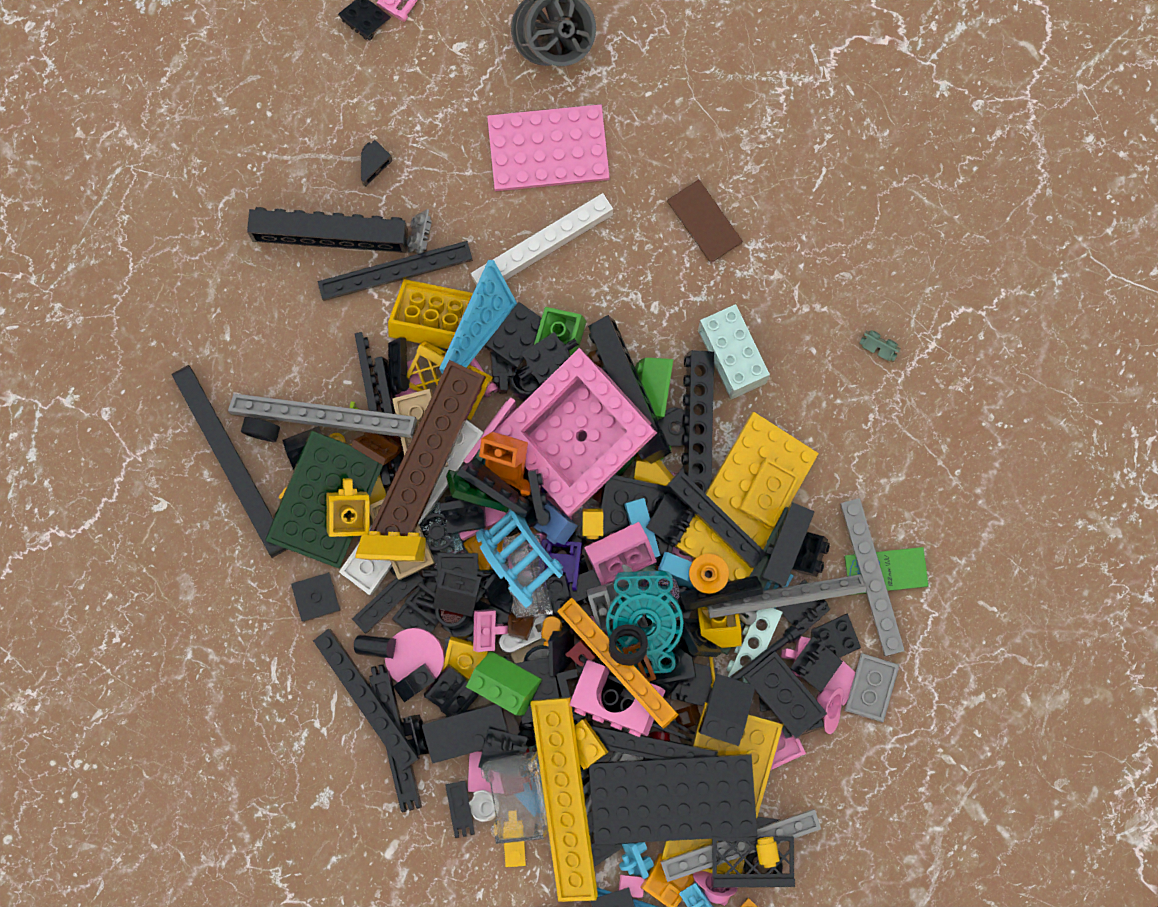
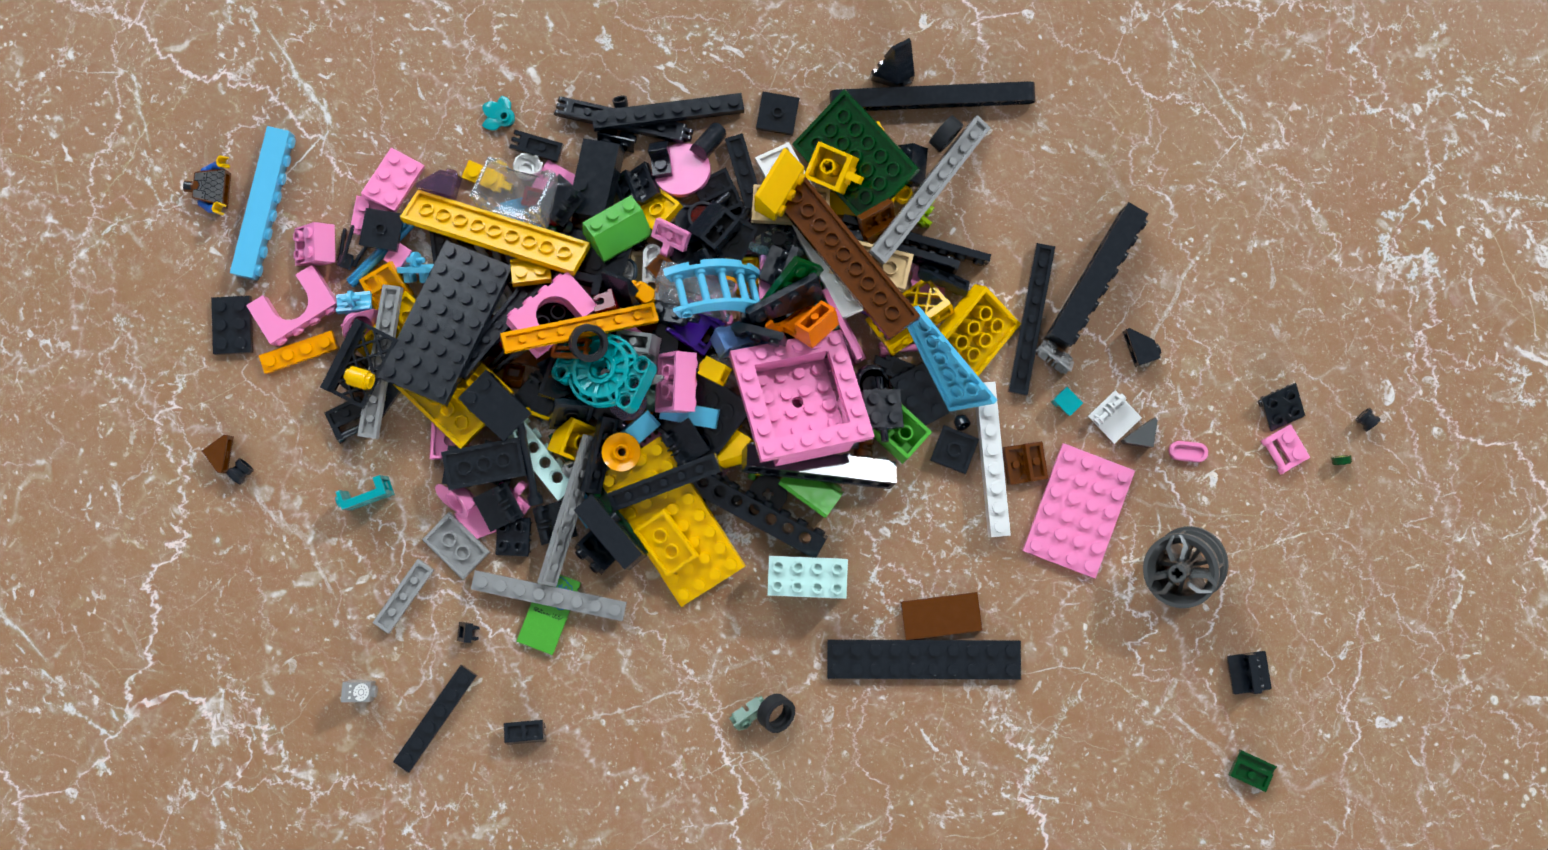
camera: 115 degrees right, 5 degrees up
(221, 502) = (897, 67): none -> black wedge
(375, 753) = (620, 101): none -> black hinge
(445, 865) = (495, 113): none -> teal plate
(446, 78) = (1188, 451): none -> bright pink tile
(447, 156) = (1114, 416): none -> white hinge
(451, 123) = (1143, 436): none -> dark grey slope
(455, 203) = (1067, 401): none -> teal panel
(521, 287) = (961, 422): none -> black hinge
(529, 213) = (1025, 463): none -> reddish brown slope
(541, 880) = (442, 183): none -> clear purple slope
(549, 281) = (954, 449): none -> black plate
(751, 218) = (923, 659): none -> black plate
(807, 857) = (343, 415): none -> black plate
(867, 328) = (784, 719): none -> black tyre
(874, 791) = (383, 490): none -> teal panel
(943, 711) = (403, 596): none -> light grey plate
(945, 636) = (465, 632): none -> black tile
(1004, 535) = (524, 732): none -> black hinge
(1036, 624) = (435, 718): none -> black plate
(1049, 704) = (358, 690): none -> light grey slope

